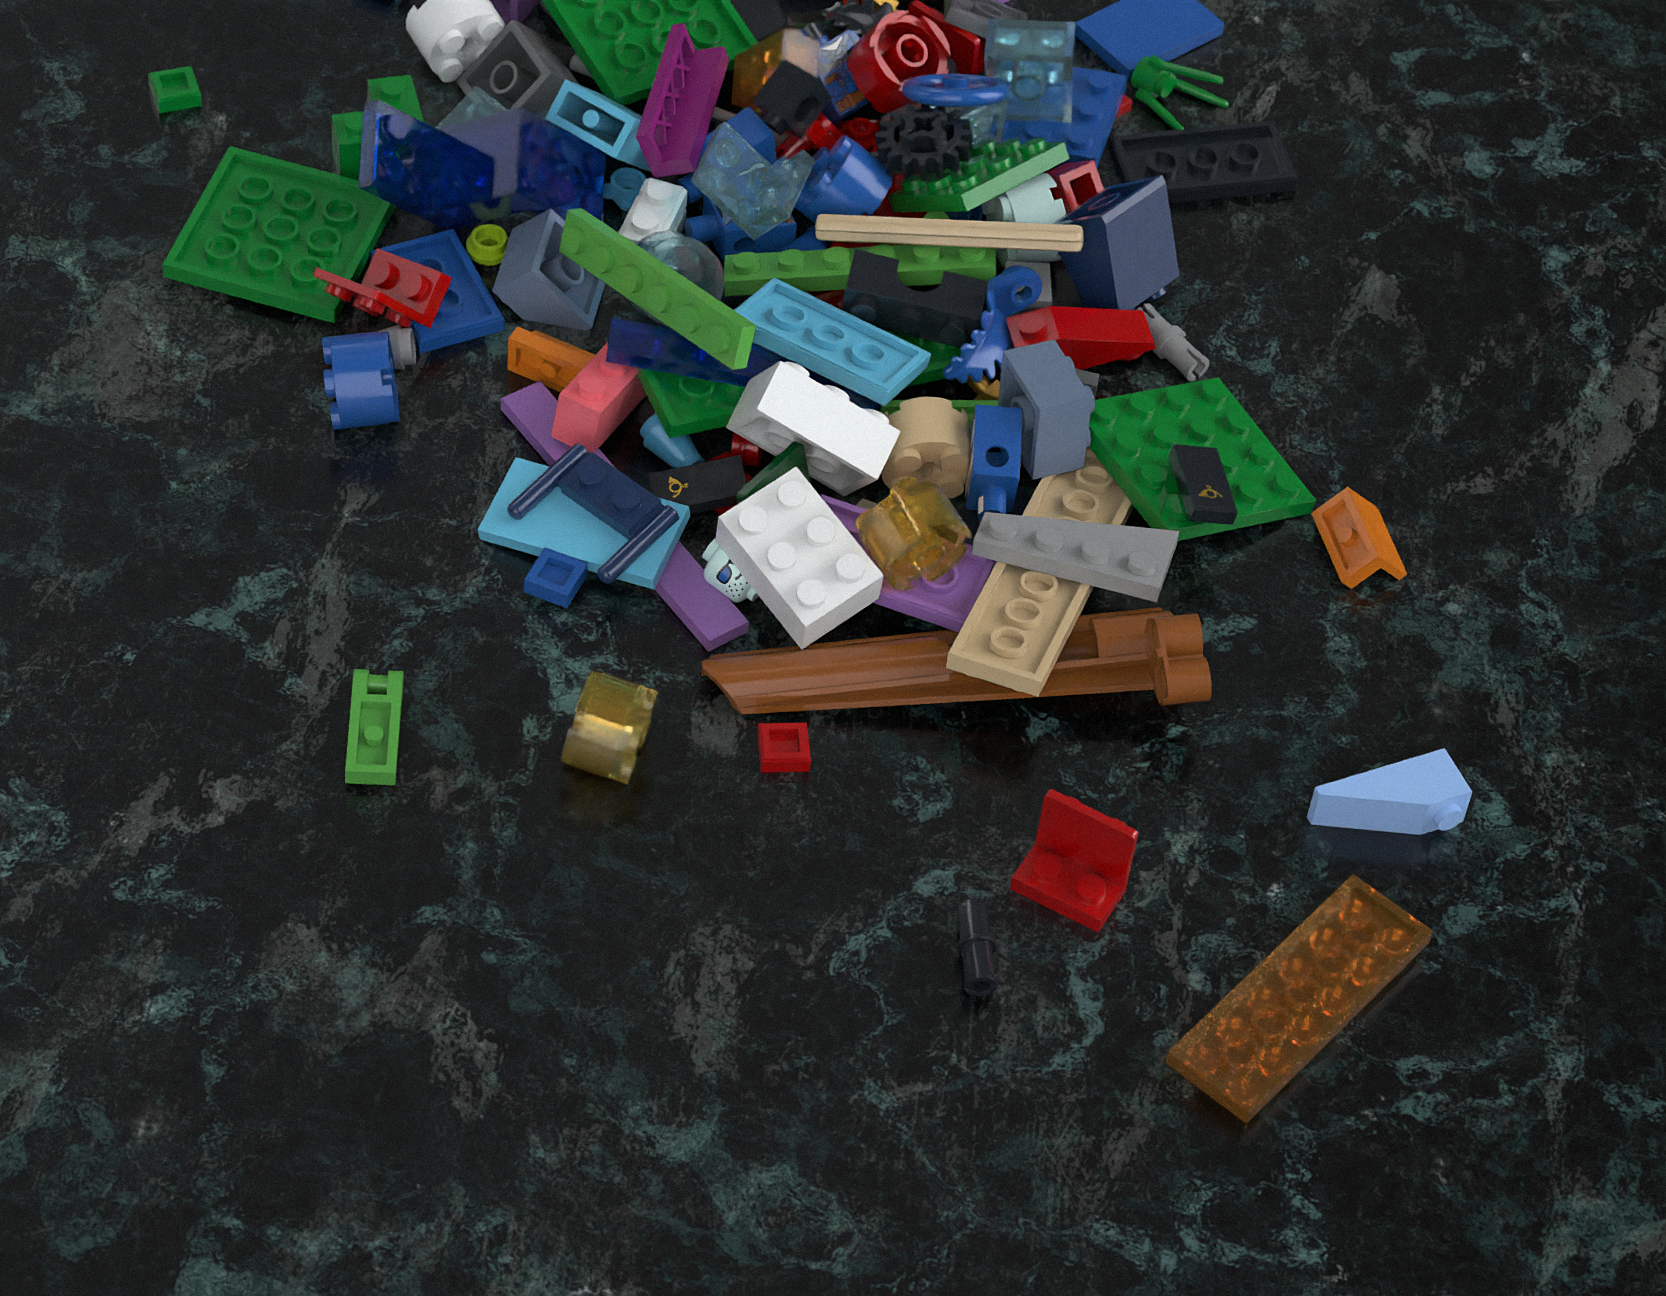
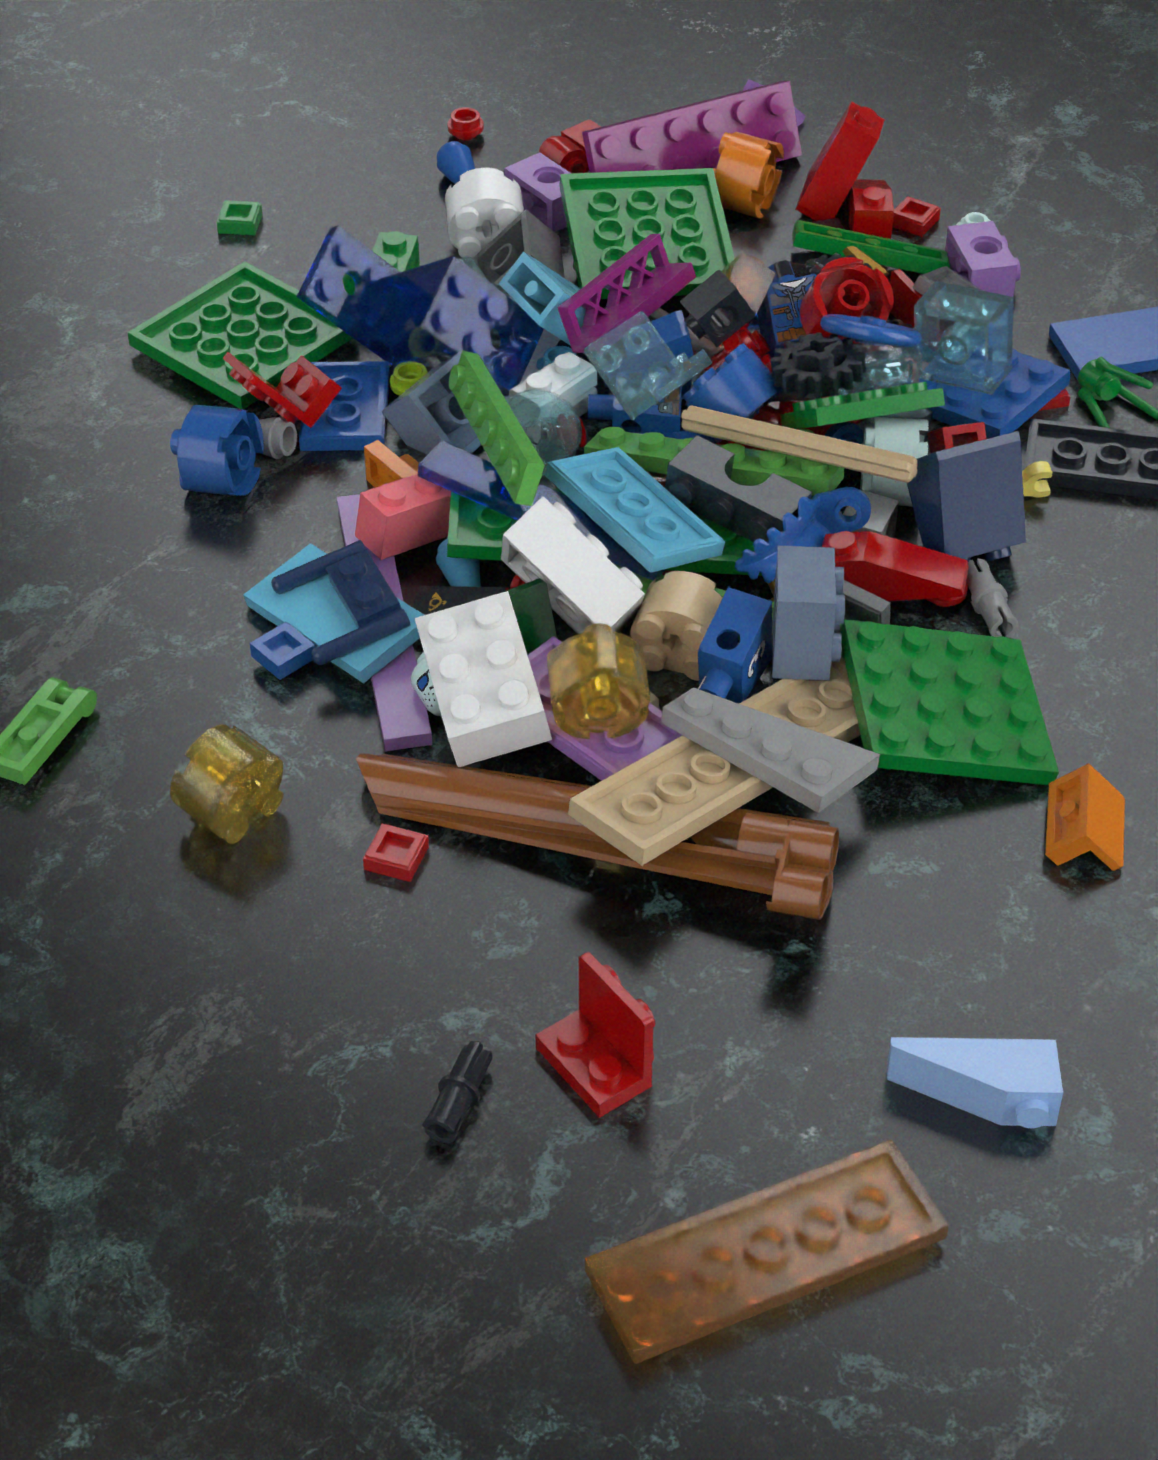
camera: 30 degrees right, 5 degrees down
(1203, 484) = (930, 719): black tile -> none

